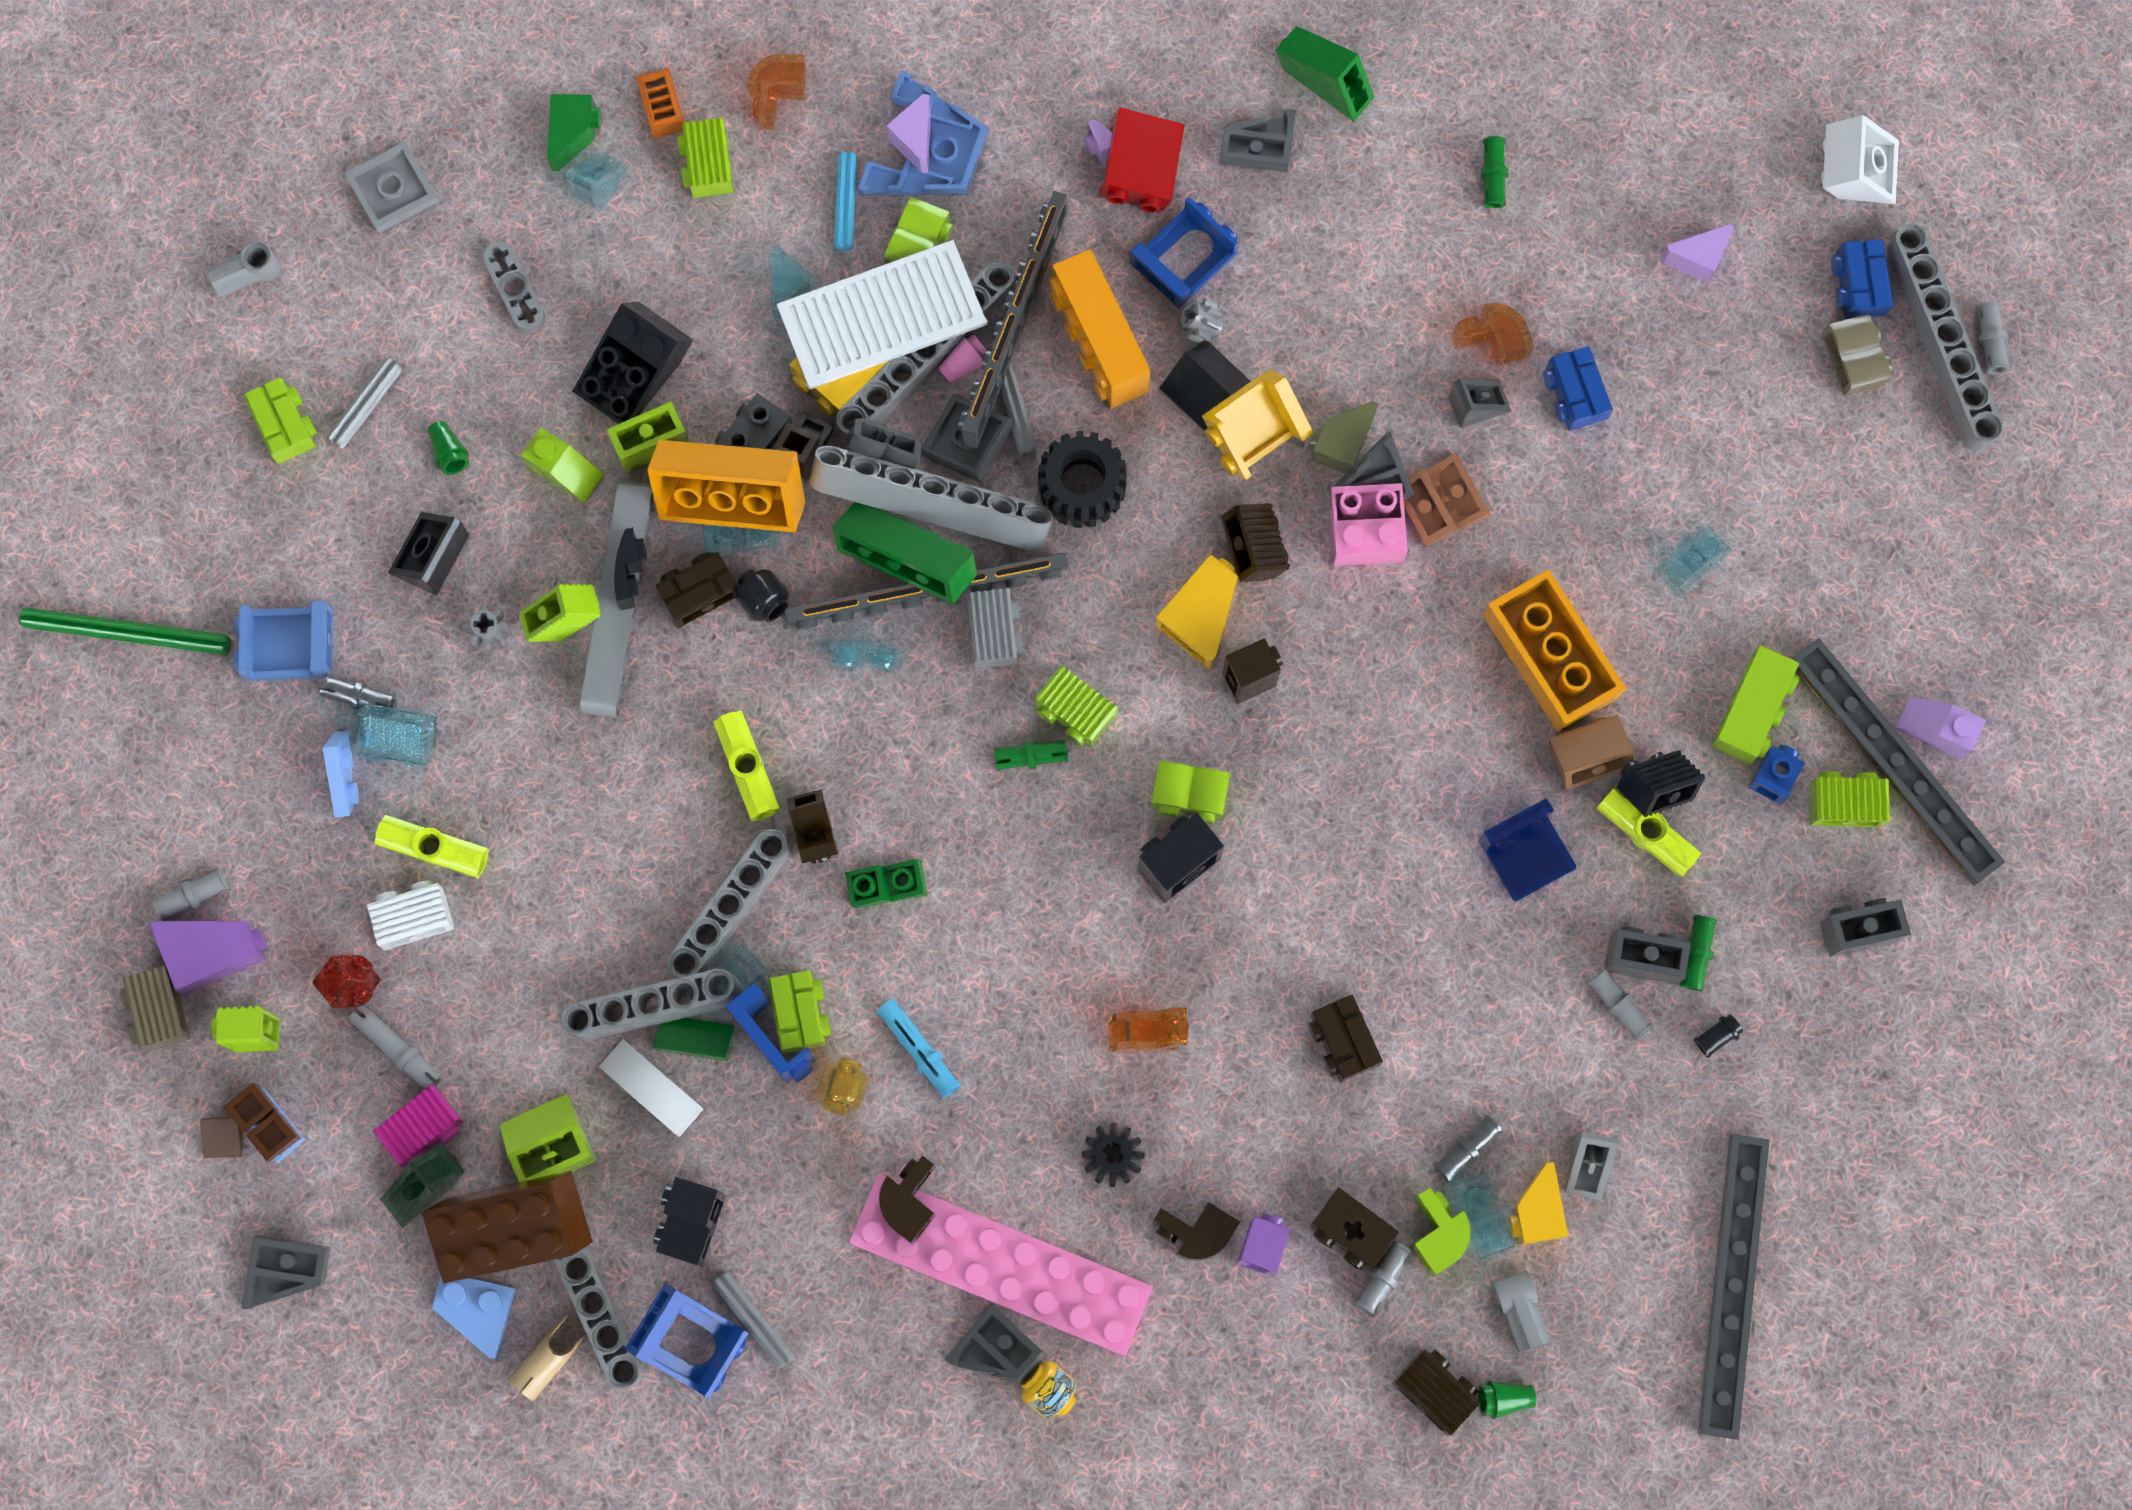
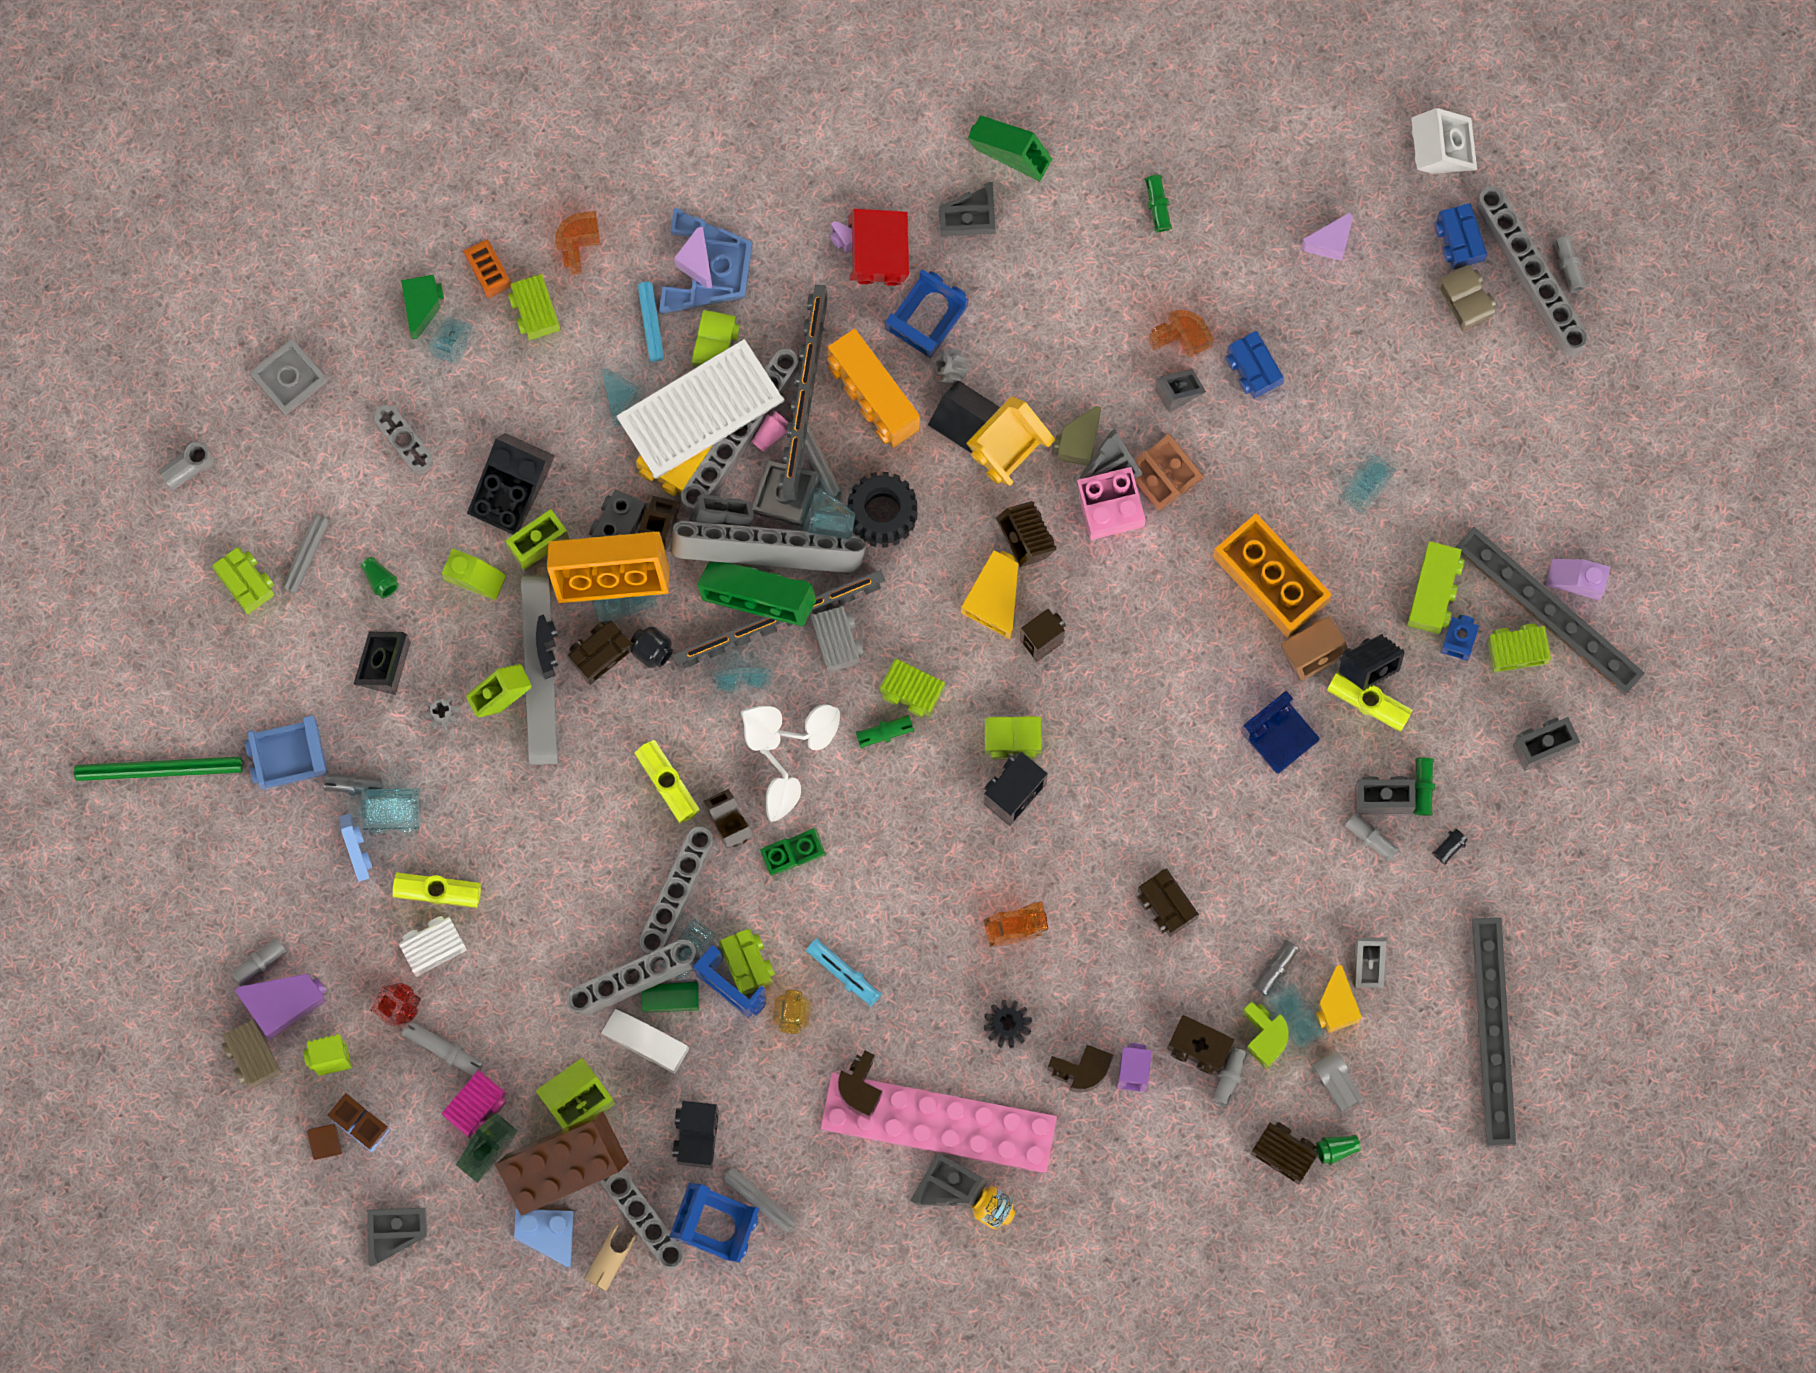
camera: 10 degrees left, 0 degrees up
(875, 725) = (763, 734): none -> white plant
(1015, 475) = (830, 516): none -> clear light blue slope

